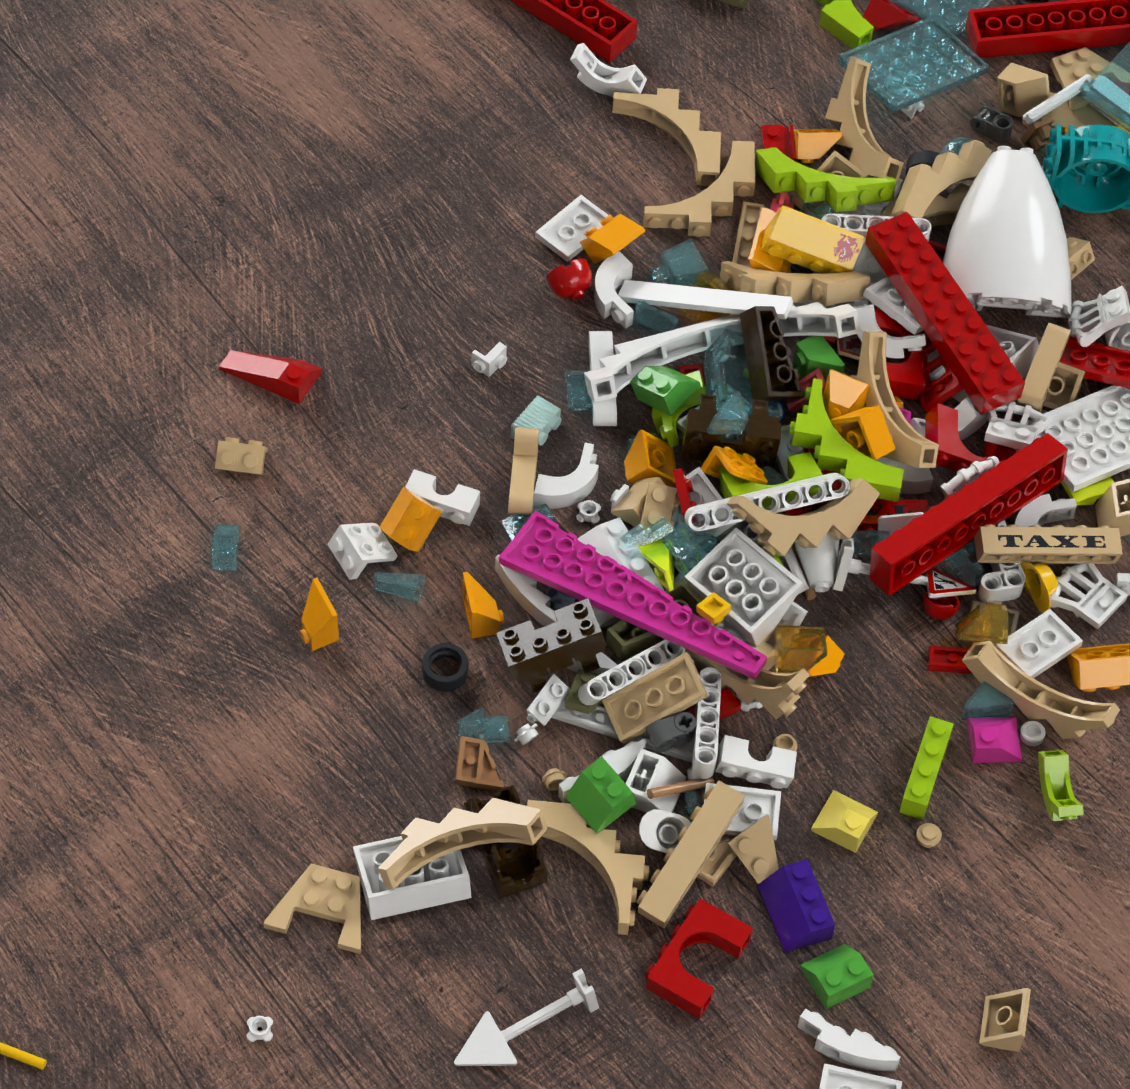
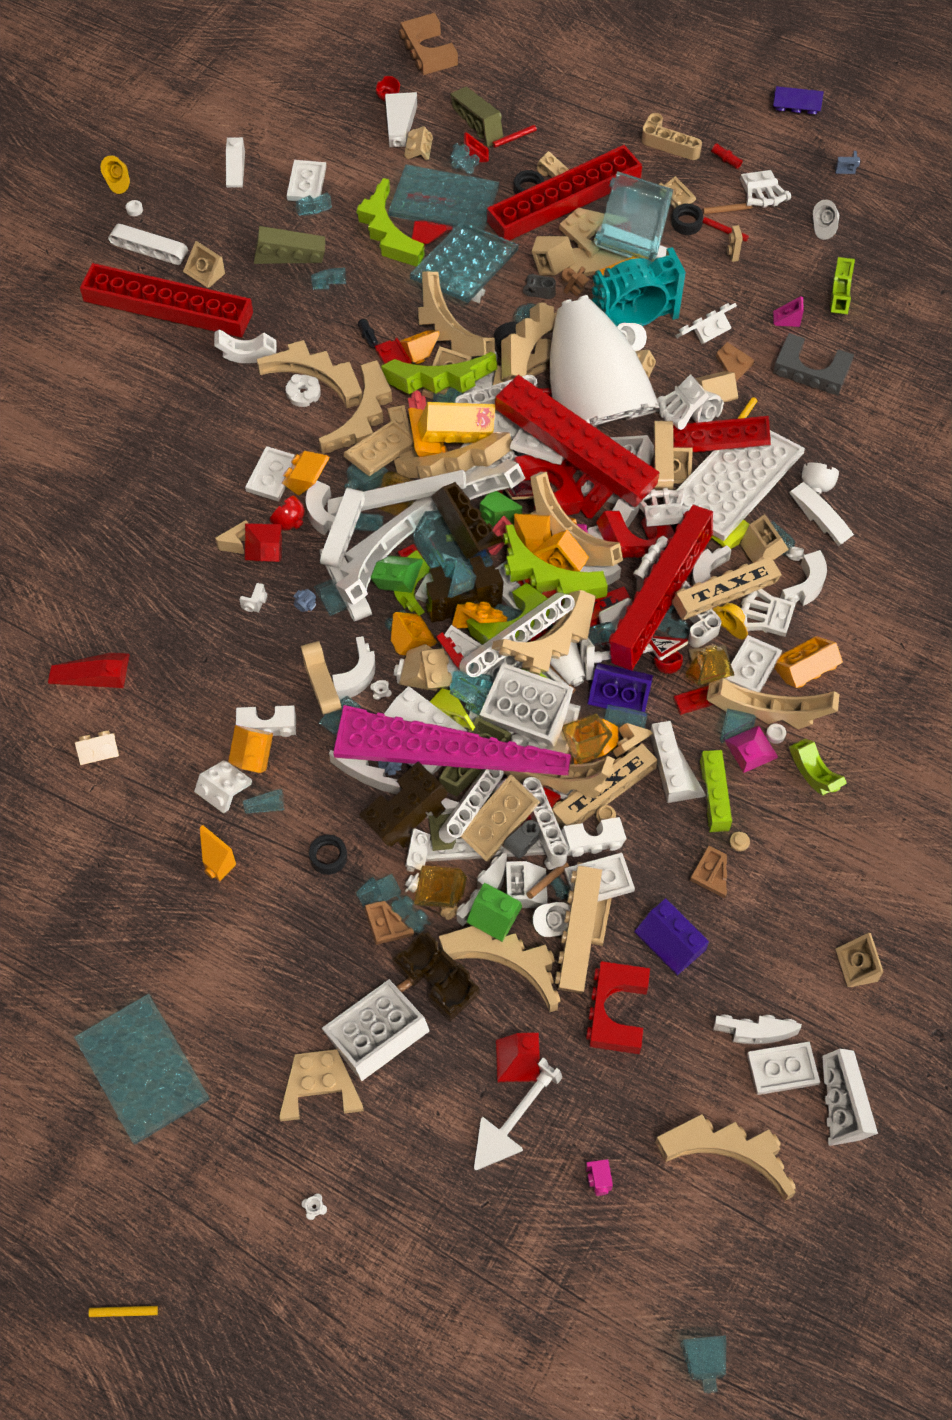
camera: 20 degrees left, 5 degrees up
(138, 812) = (141, 1069): none -> clear light blue plate
(225, 547) = (116, 825): clear light blue slope -> none
(459, 830) = (403, 982): tan arch -> none
(480, 608) = (335, 798): light orange slope -> none
(494, 284) = (231, 539): none -> tan slope
(506, 756) = (417, 917): none -> clear light blue hinge
(528, 300) = (263, 542): none -> red slope
(540, 416) = (311, 630): light aqua brick -> none
(546, 381) = (304, 600): none -> sand blue gear
(555, 748) = (440, 886): none -> clear yellow slope
(555, 963) = (518, 1058): none -> red slope
(625, 315) = (343, 528): none -> white beam
(639, 536) = (433, 696): clear light blue slope -> none
(656, 137) = (303, 382): none -> white plate
(710, 242) = (380, 448): none -> tan tile
(713, 609) = (513, 732): yellow tile -> none
(736, 27) = (324, 278): none -> clear light blue slope
(757, 849) = (624, 904): tan wing -> none
(760, 107) = (368, 333): none -> black axle
(813, 713) = (626, 773): none -> tan brick
(837, 975) = (724, 977): bright green slope -> none
(844, 821) = (674, 855): light yellow slope -> none
(856, 671) = (632, 736): none -> tan slope
(859, 648) = (621, 716): none -> clear light blue slope
(868, 614) = (620, 688): none -> dark purple slope
(879, 855) = (712, 872): none -> medium nougat wing
(890, 728) = (675, 773): none -> white wedge
(894, 345) = (559, 472): white arch -> none
(1055, 101) = (580, 252): white axle -> none
(1077, 218) = (634, 334): none -> white piece

